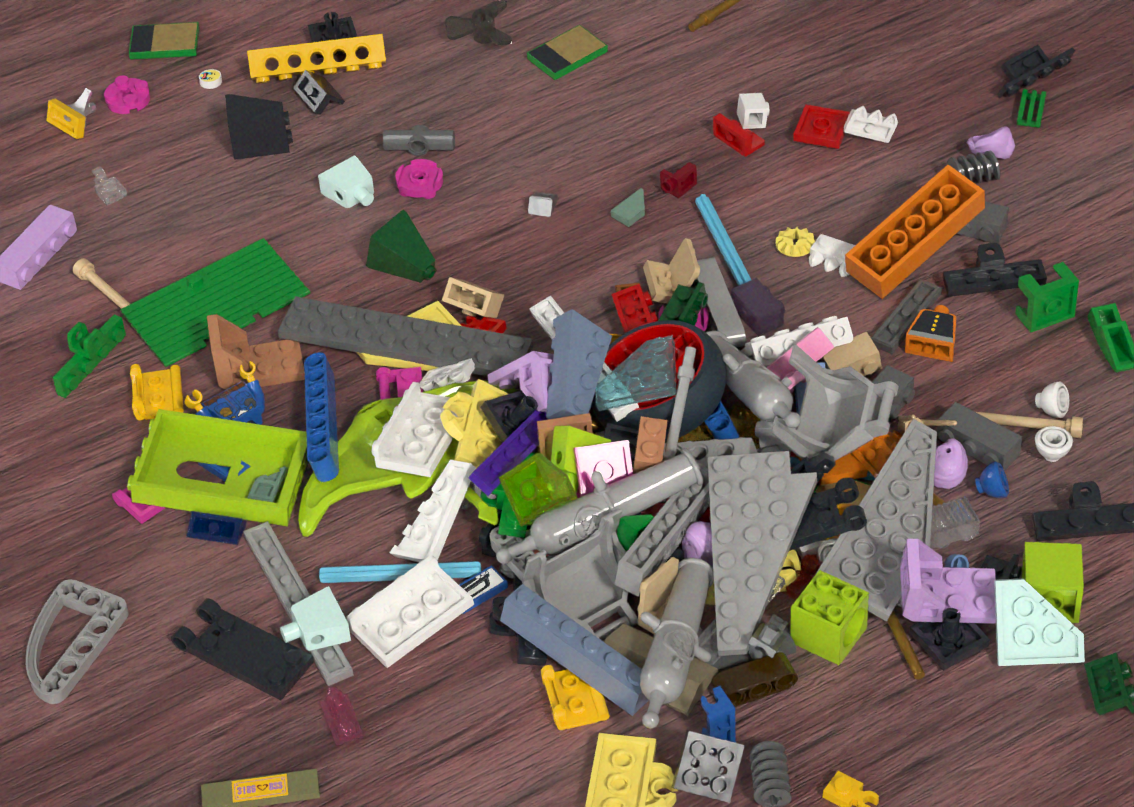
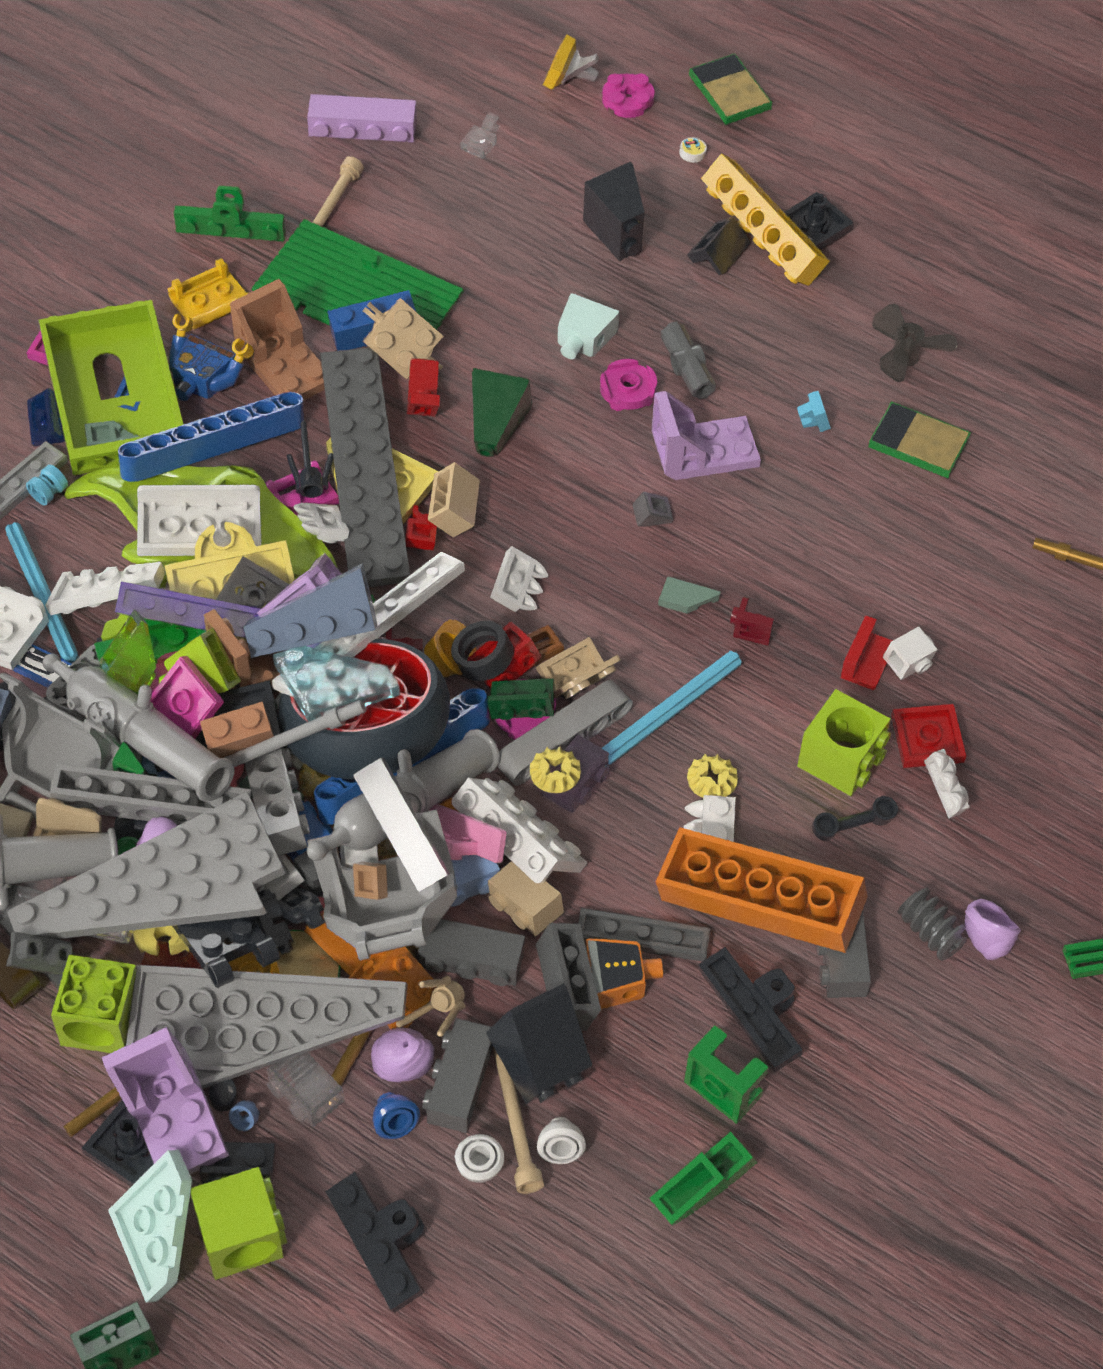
camera: 60 degrees right, 10 degrees up
(264, 294) = (351, 325): none -> blue brick
(296, 542) = (47, 484): none -> medium azure wheel
(298, 277) = (400, 336): none -> tan plate
(356, 292) = (423, 388): none -> red bracket
(403, 369) = (310, 481): none -> black plant
(501, 155) = (703, 447): none -> lavender bracket
(513, 90) = (813, 413): none -> medium azure tile
(569, 291) = (517, 581): none -> white plate
(622, 300) = (472, 637): none -> black tyre
(756, 313) = (556, 781): none -> light yellow gear
(795, 366) = (401, 824): none -> tile
(813, 160) = (849, 721): none -> lime brick
(817, 414) = (370, 880): none -> medium nougat plate
(869, 171) = (880, 813): none -> black bar
(930, 355) = (566, 961): none -> dark grey brick
(982, 378) = (542, 1045): none -> black slope

